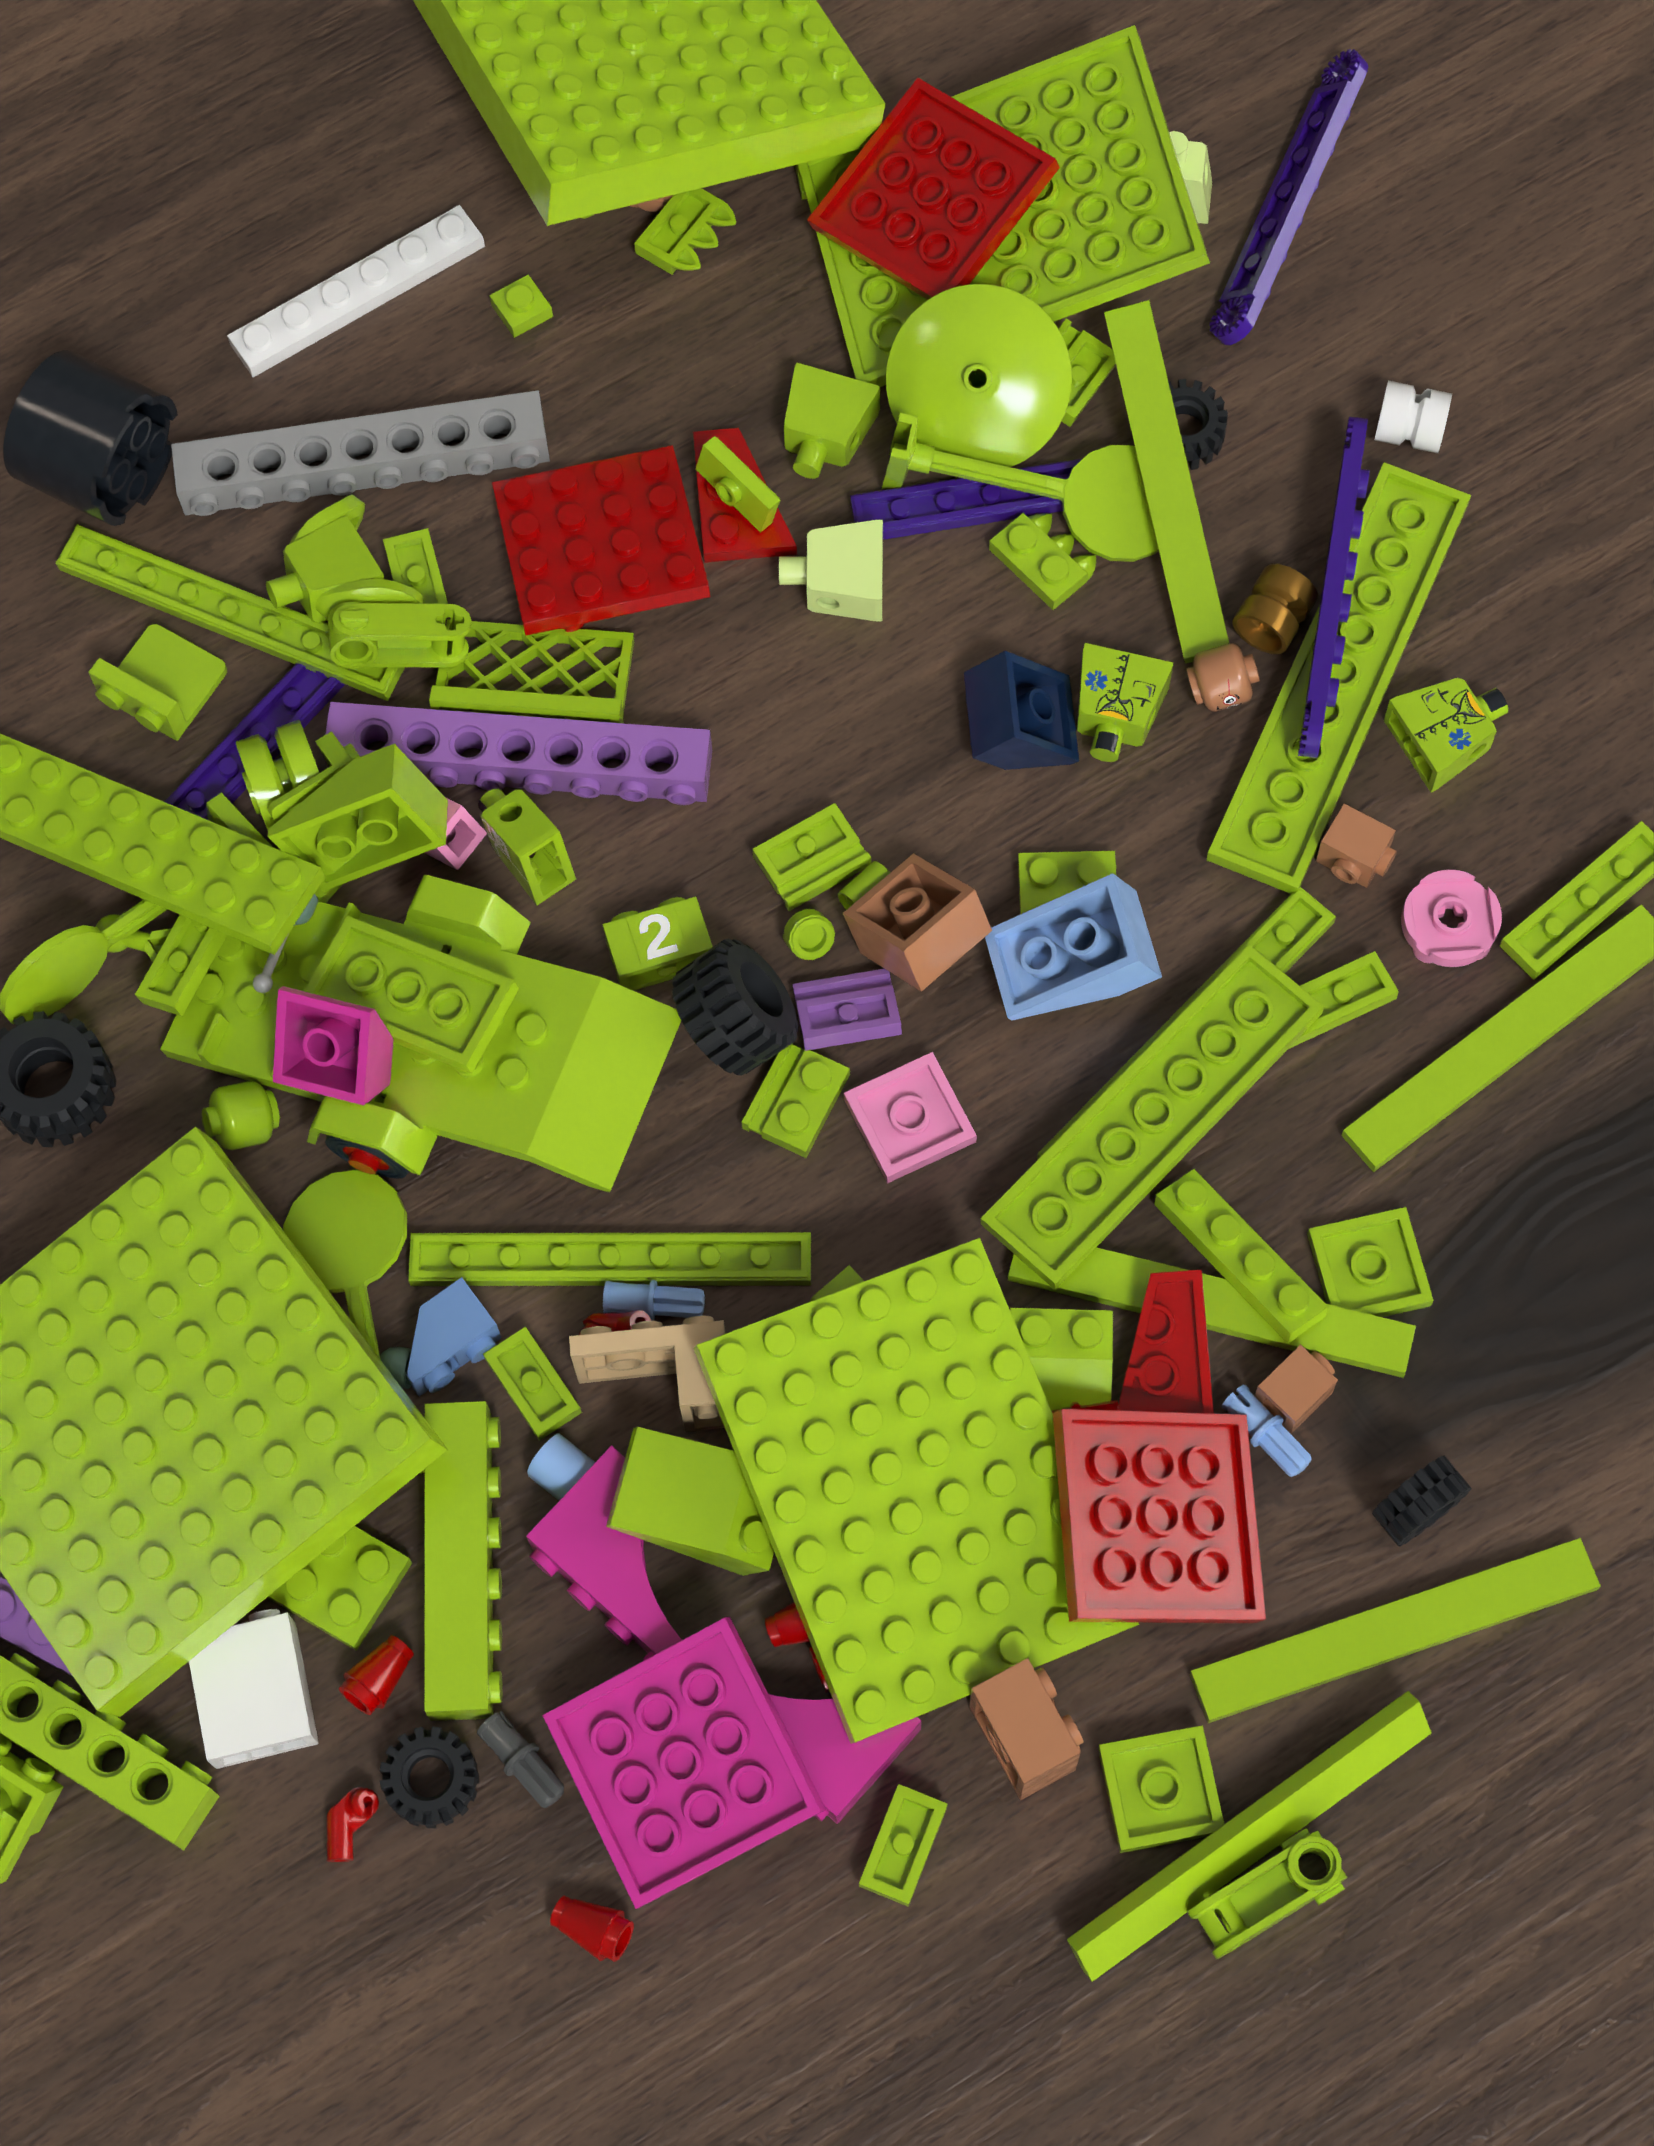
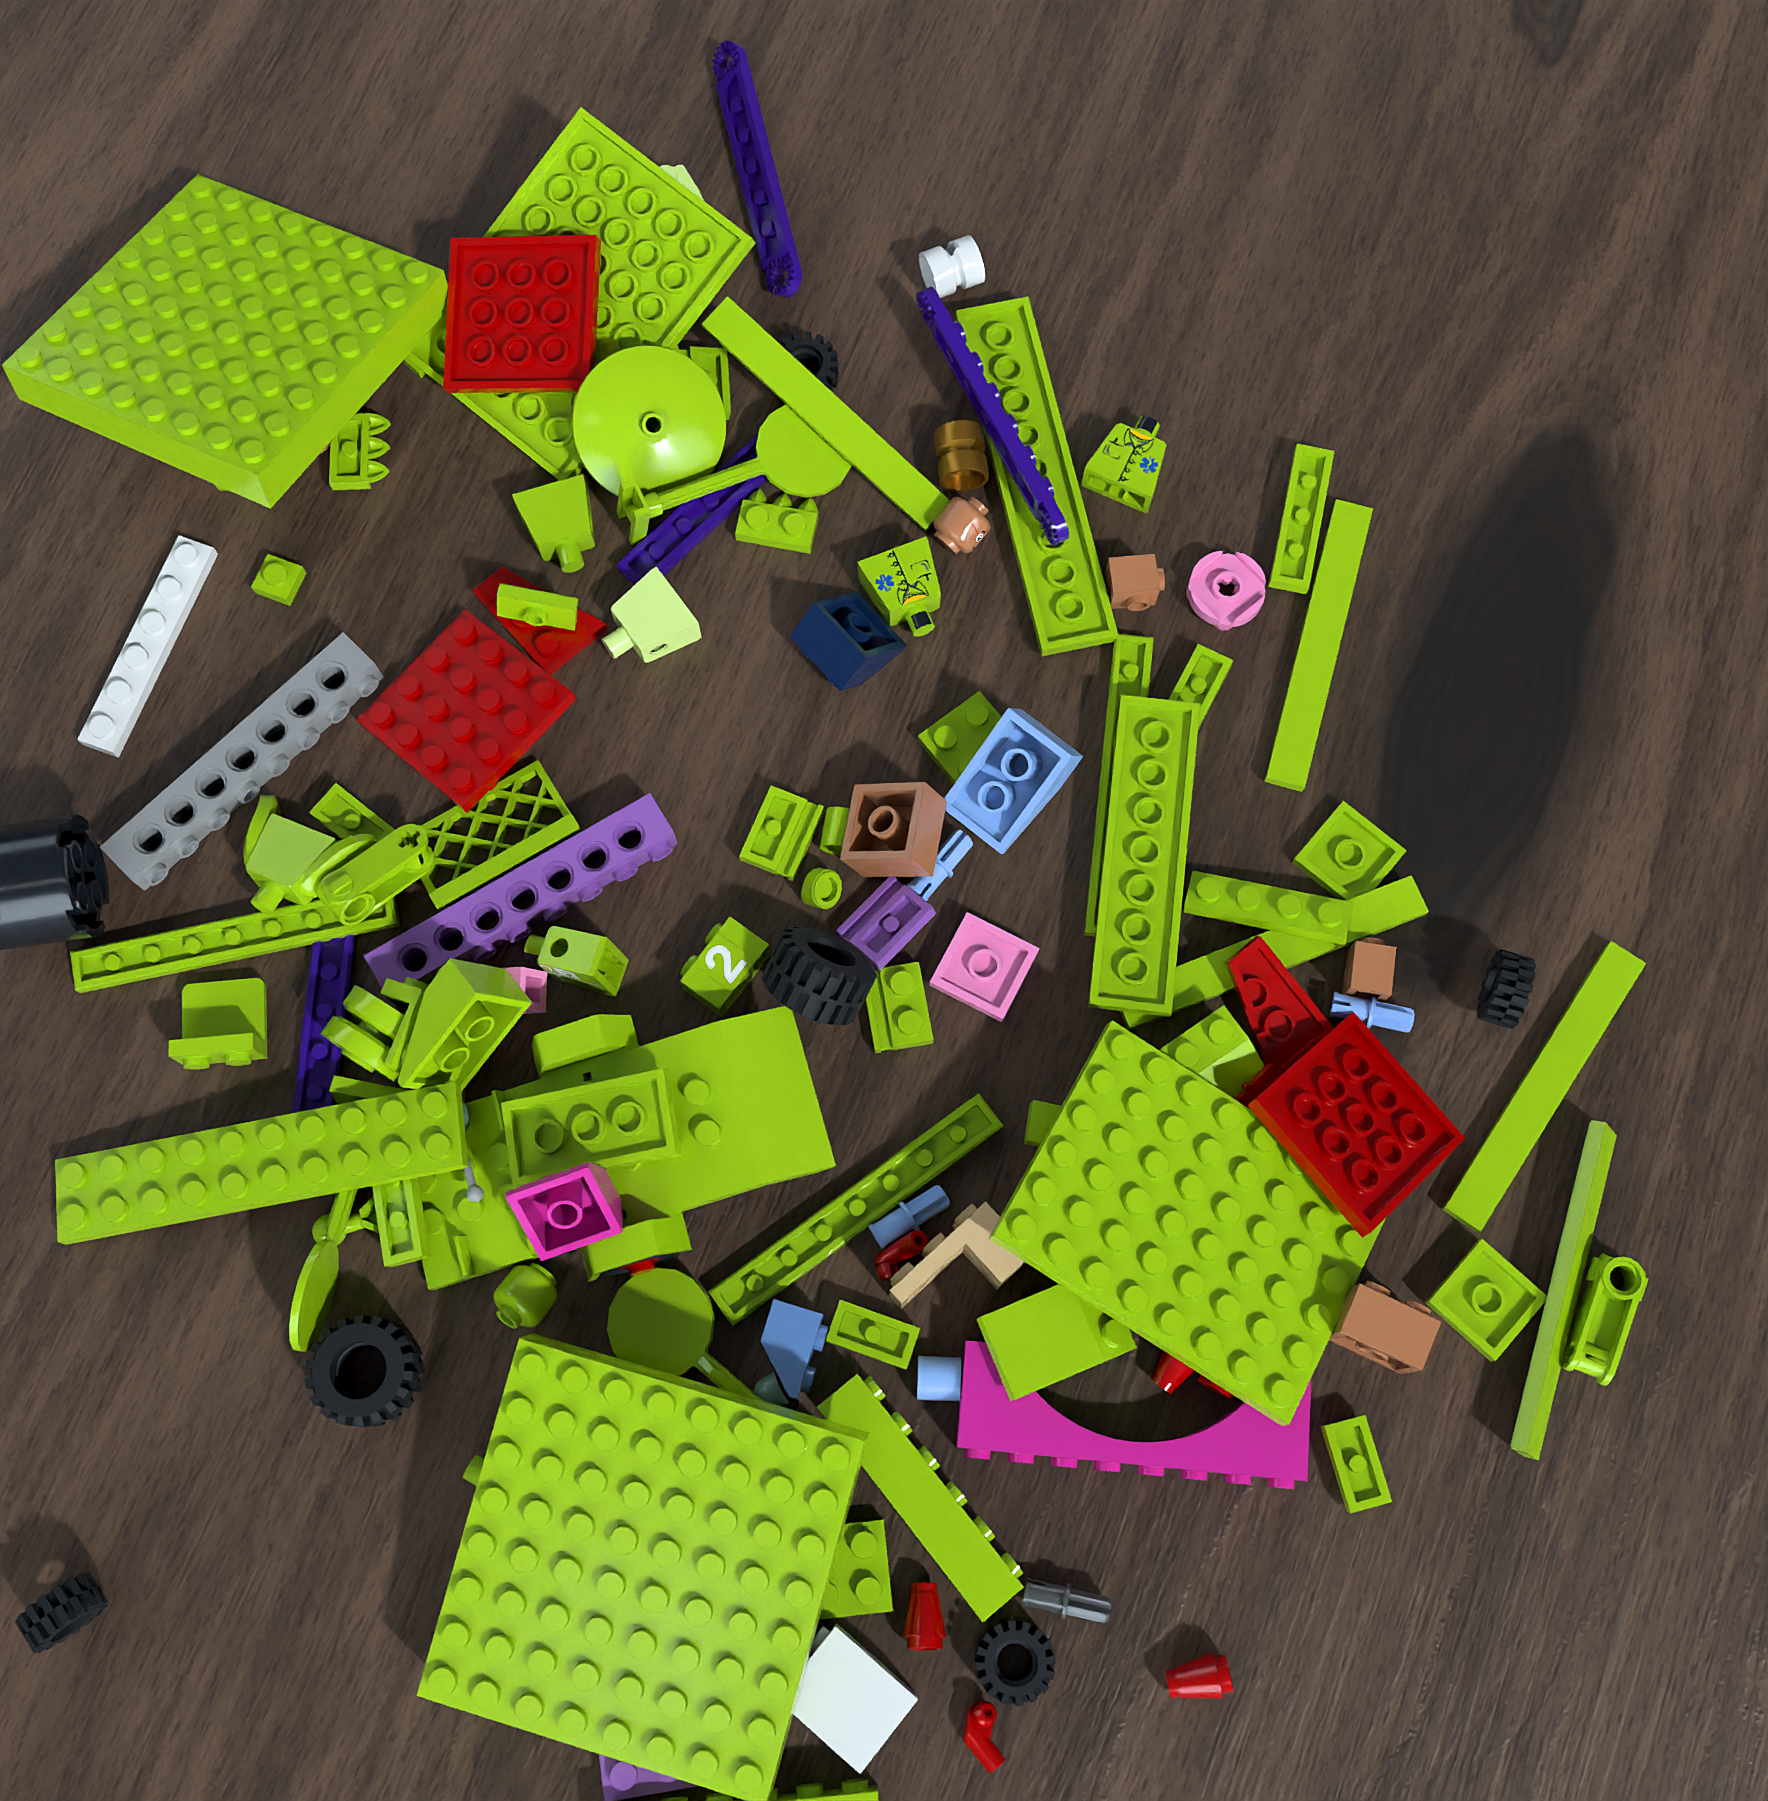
camera: 40 degrees left, 5 degrees up
(683, 1762) = (1181, 1523): dark pink plate -> none
(944, 992) = (947, 858): none -> light blue axle

